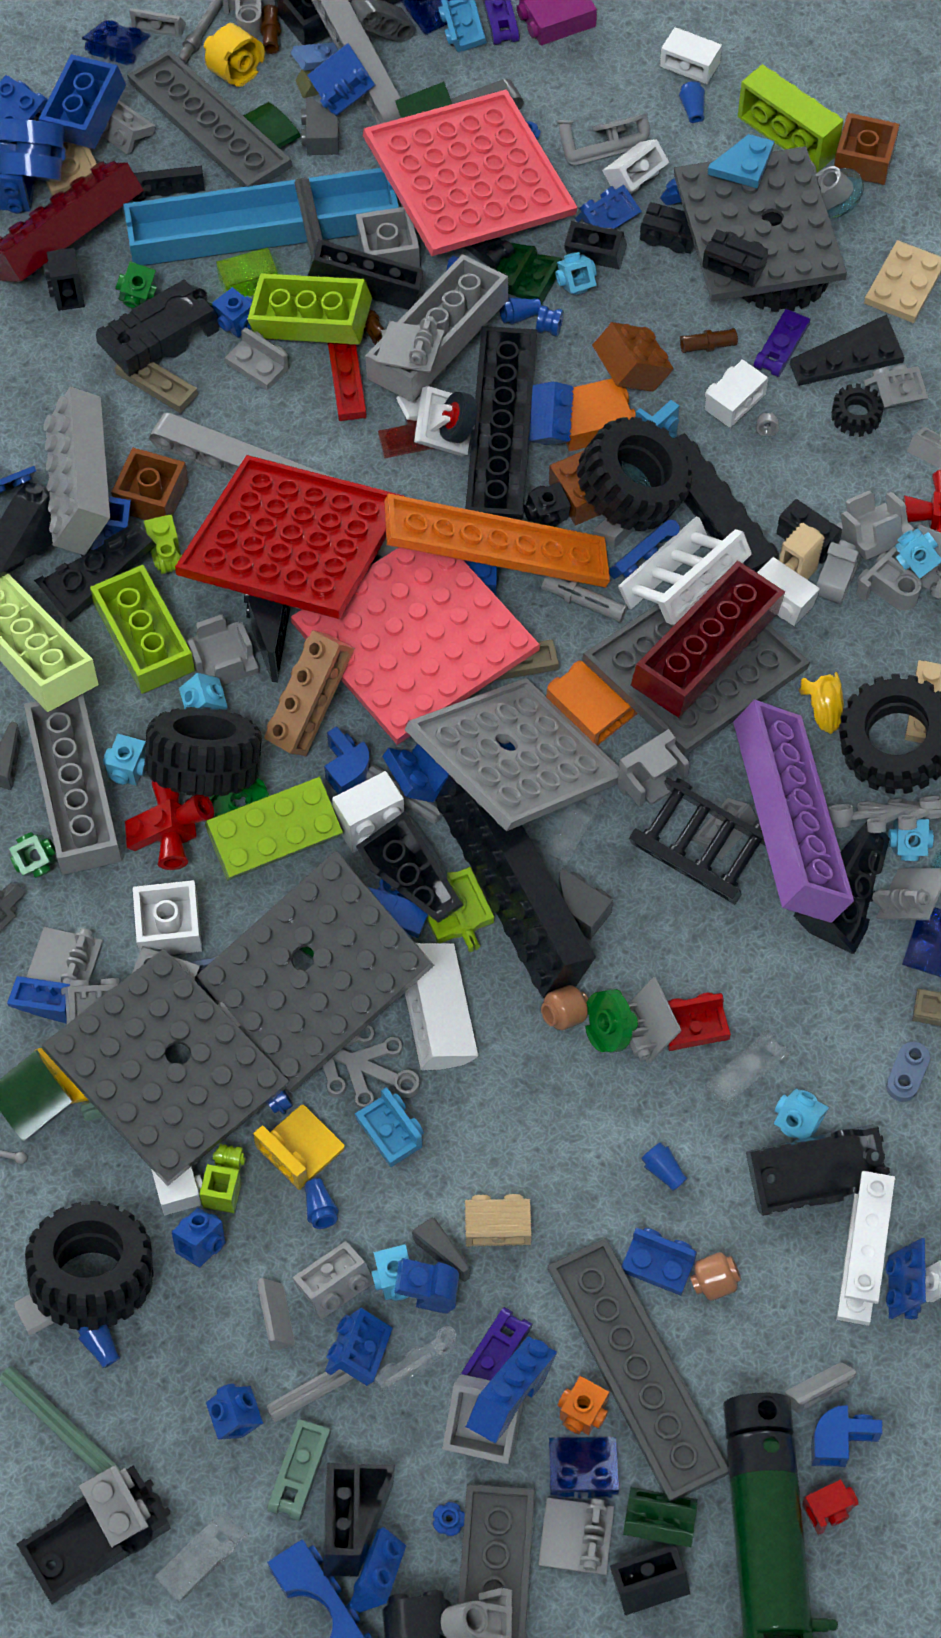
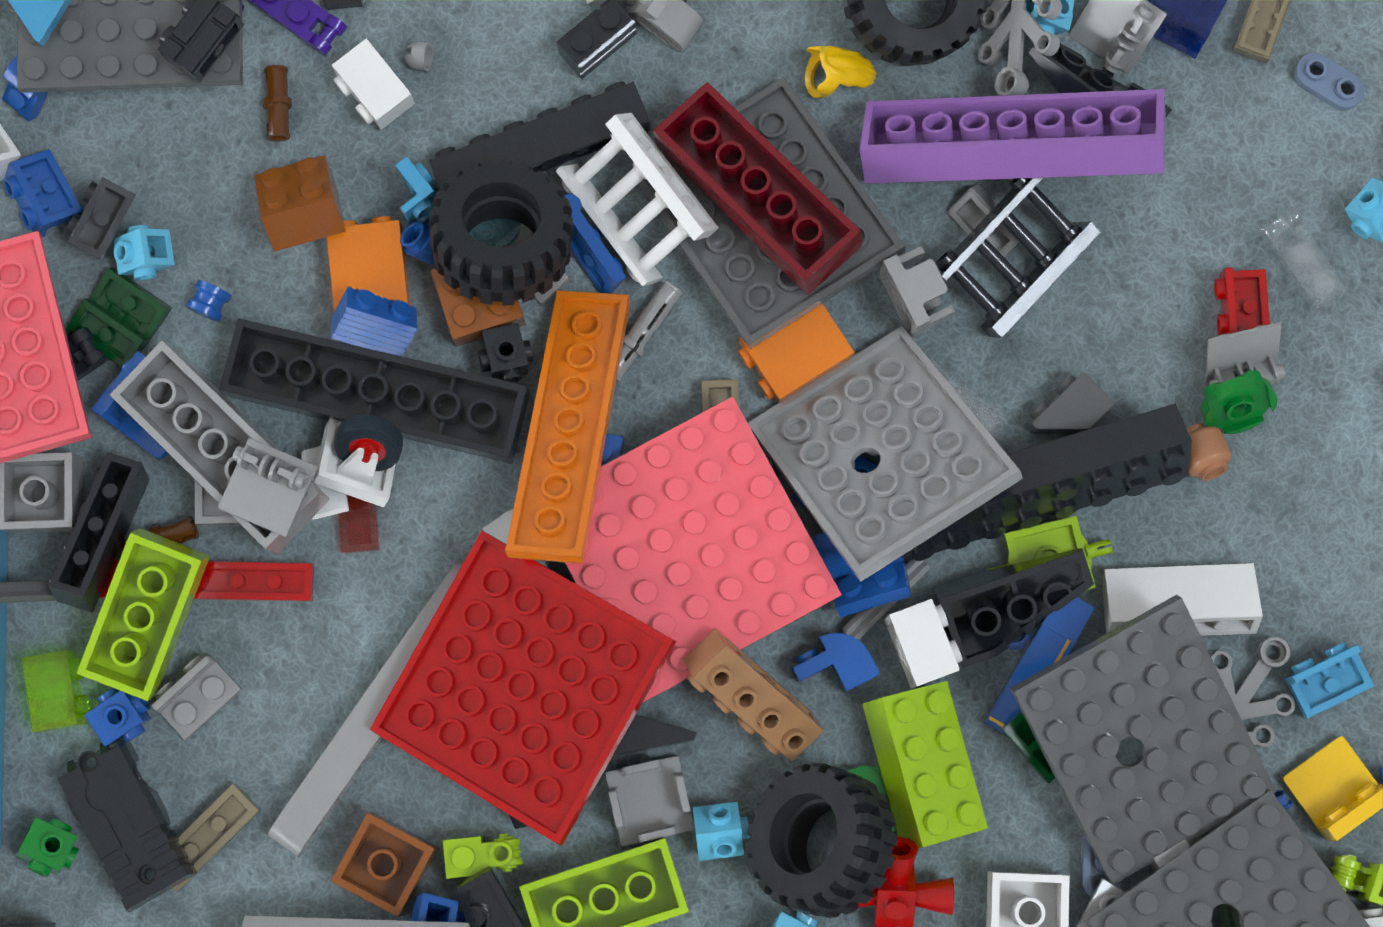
camera: 80 degrees left, 20 degrees up
(519, 309) = (181, 333): blue cone -> none
(666, 228) = (86, 119): black brick -> none
(799, 593) = (679, 81): white brick -> none
(802, 550) = (641, 54): tan brick -> none

